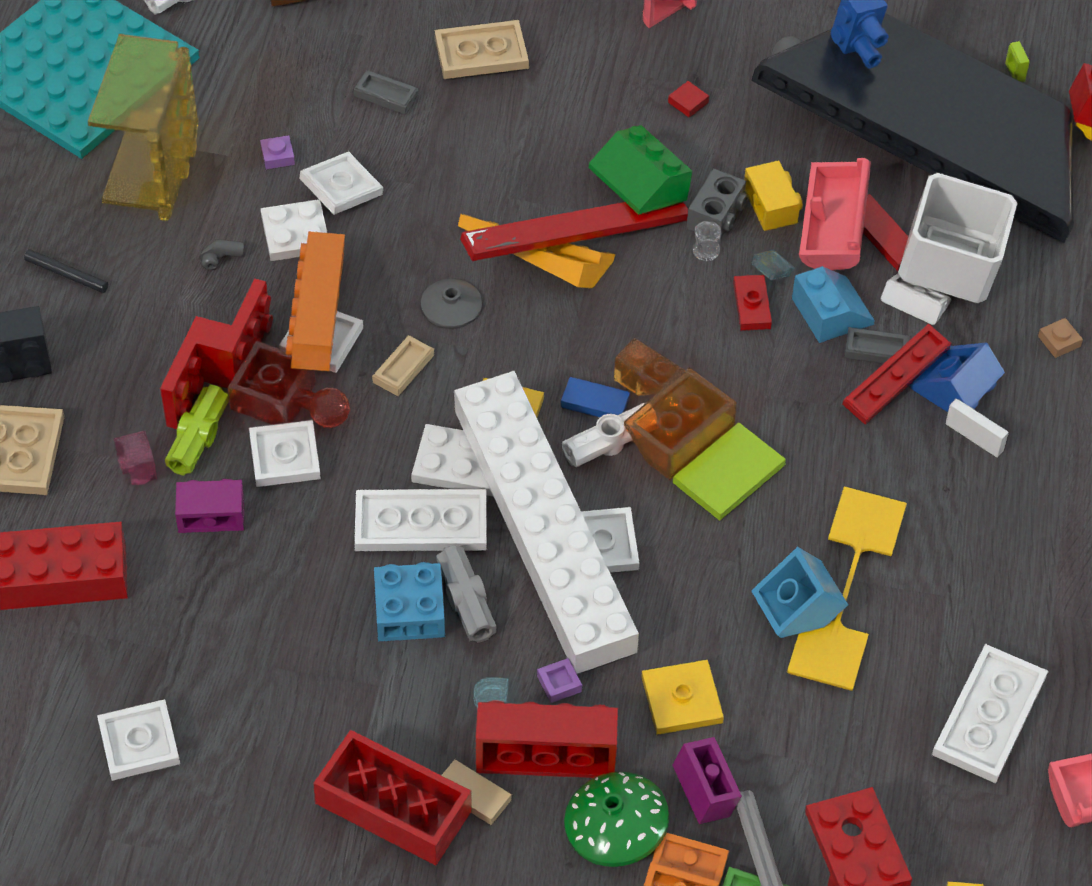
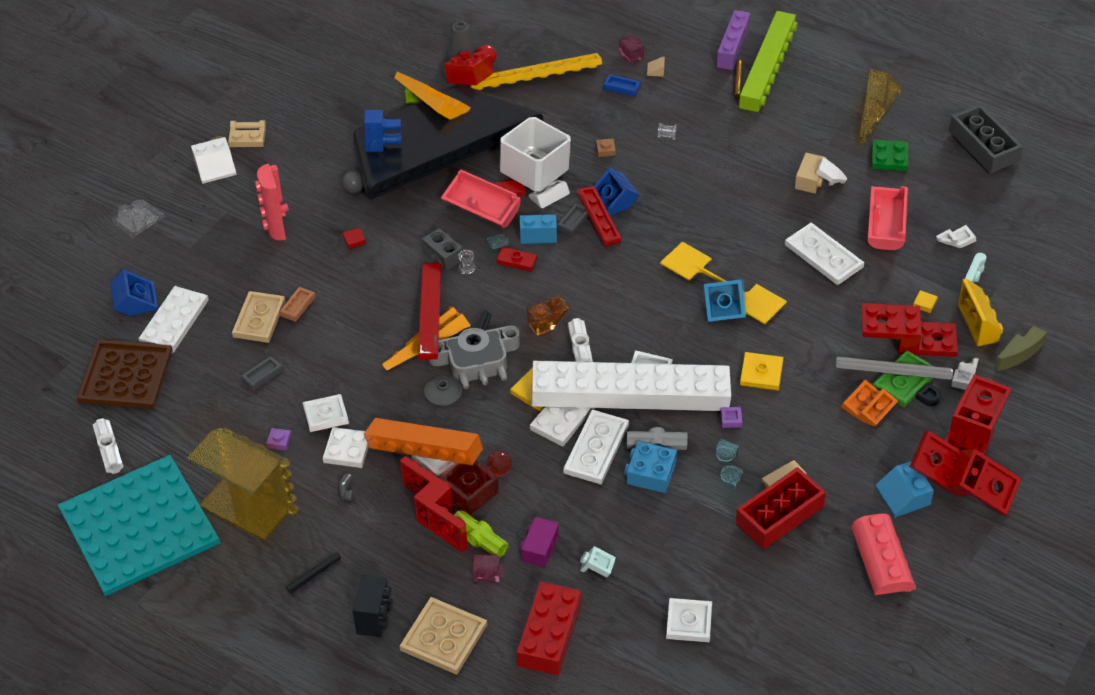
camera: 65 degrees left, 5 degrees down
(201, 589) = (597, 561): none -> light aqua bracket
(284, 453) = (517, 496): white plate -> none
(403, 365) = (479, 424): tan tile -> none
(445, 717) = (731, 475): none -> clear light blue tile
(526, 81) = (297, 304): none -> nougat plate
(535, 315) = (478, 351): none -> light grey piece
(545, 739) = (773, 429): red brick -> none
(594, 398) = (549, 346): blue tile -> none
(620, 833) = (827, 429): green dish -> none
(642, 170) = (404, 269): green slope -> none
(681, 422) = (593, 309): clear orange slope -> none
(706, 780) = (823, 372): magenta brick -> none
(729, 471) = (626, 305): lime tile -> none
(772, 195) = (451, 222): yellow brick -> none
(976, 427) = (650, 197): white tile -> none
(996, 82) = (438, 101): none -> light orange wedge

